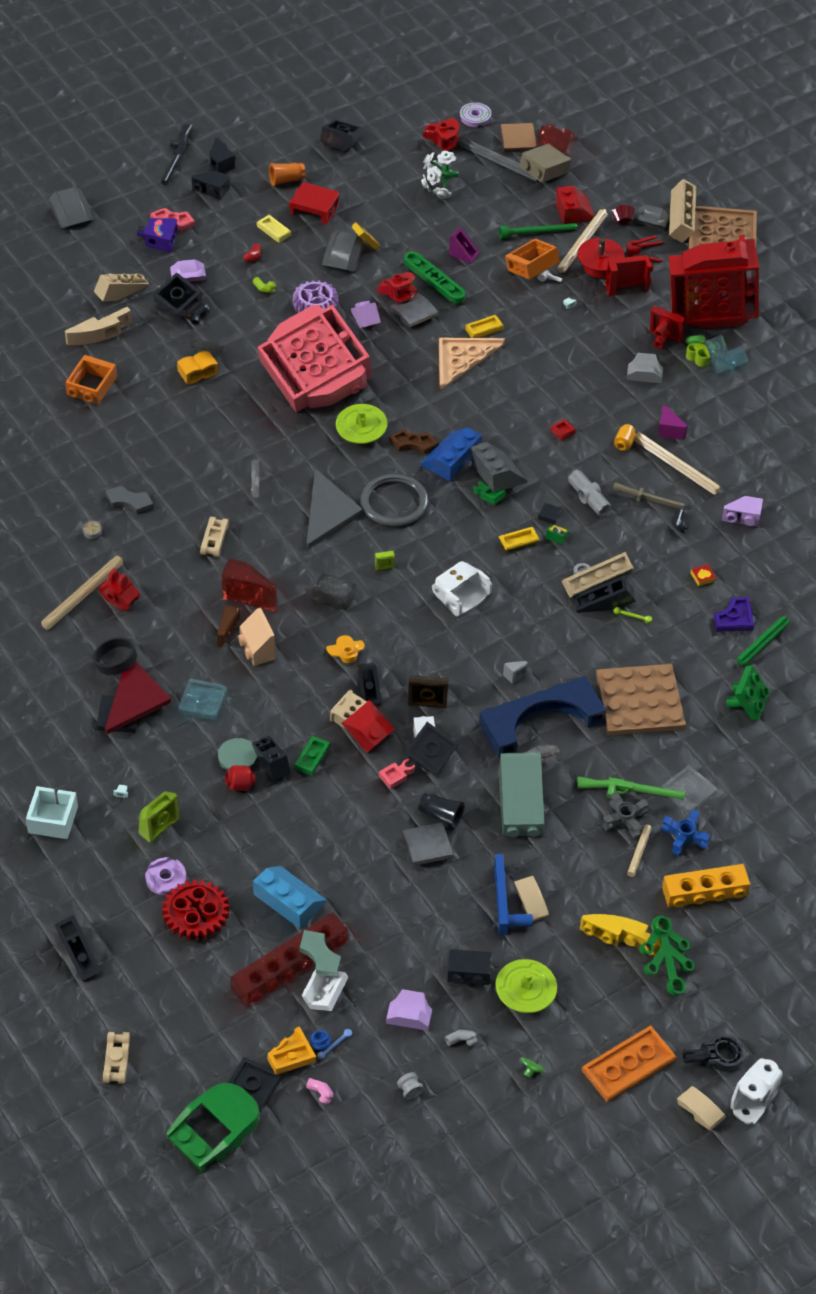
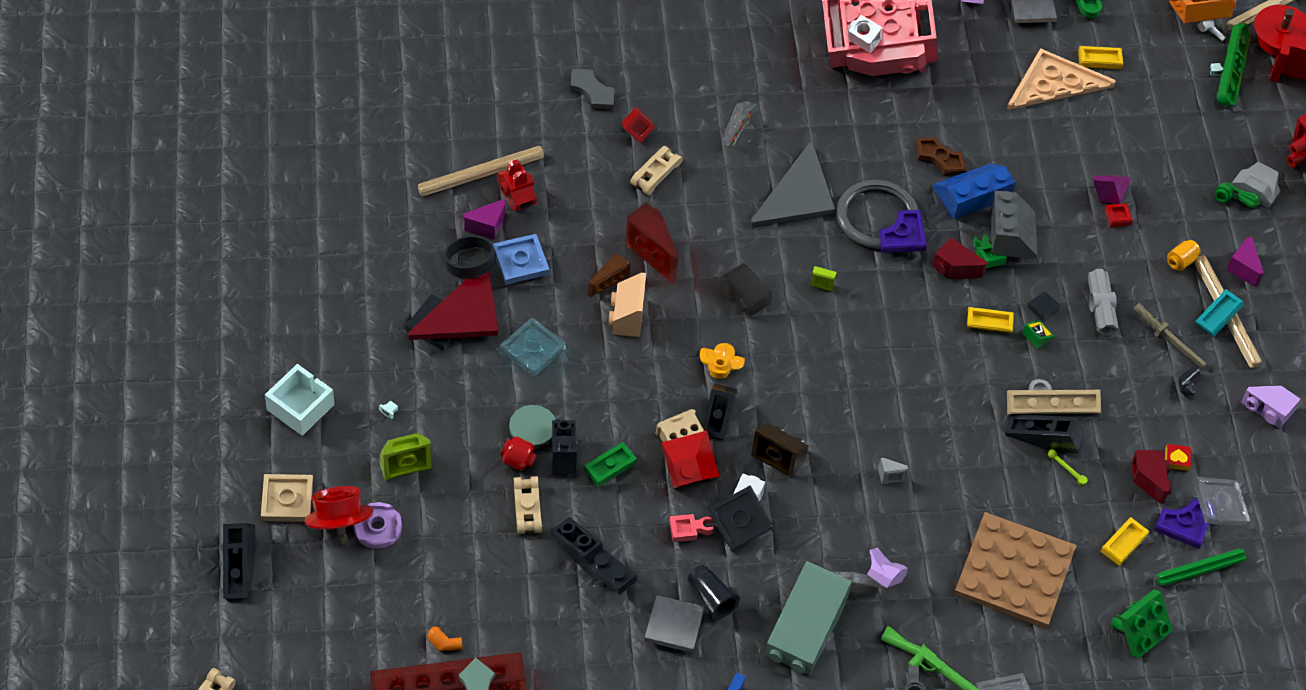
camera: 25 degrees right, 5 degrees up
(84, 888) = (286, 497): none -> tan tile
(92, 530) = (533, 106): tile -> none
(109, 625) = (485, 220): none -> magenta slope
(133, 875) = (338, 509): none -> red piece
(154, 641) = (521, 259): none -> medium blue plate
(181, 509) = (638, 124): none -> red panel
(211, 900) = (407, 576): red gear -> none
(266, 934) = (442, 642): none -> orange arm
(268, 811) = (527, 505): none -> tan plate
(287, 895) = (491, 608): dark azure slope -> none
(316, 380) = (869, 41): none -> white brick
(341, 826) = (592, 558): none -> black slope
(361, 423) = (891, 111): lime piece -> none
(424, 504) = (905, 234): none -> dark purple tile
(462, 588) = (889, 349): white piece -> none
(473, 508) = (958, 261): none -> dark red slope
(548, 413) = (1111, 188): none -> magenta slope
(557, 738) = (884, 571): none -> lavender slope
(573, 698) = (936, 532): dark blue arch -> none
(580, 293) = (1234, 65): none -> green piece
(626, 382) = (1225, 191): none -> green piece
(673, 466) = (1219, 313): none -> teal tile
(693, 594) = (1151, 472): none -> dark red slope
(702, 647) = (1125, 541): none -> yellow tile
(750, 591) = (1221, 501): none -> clear tile

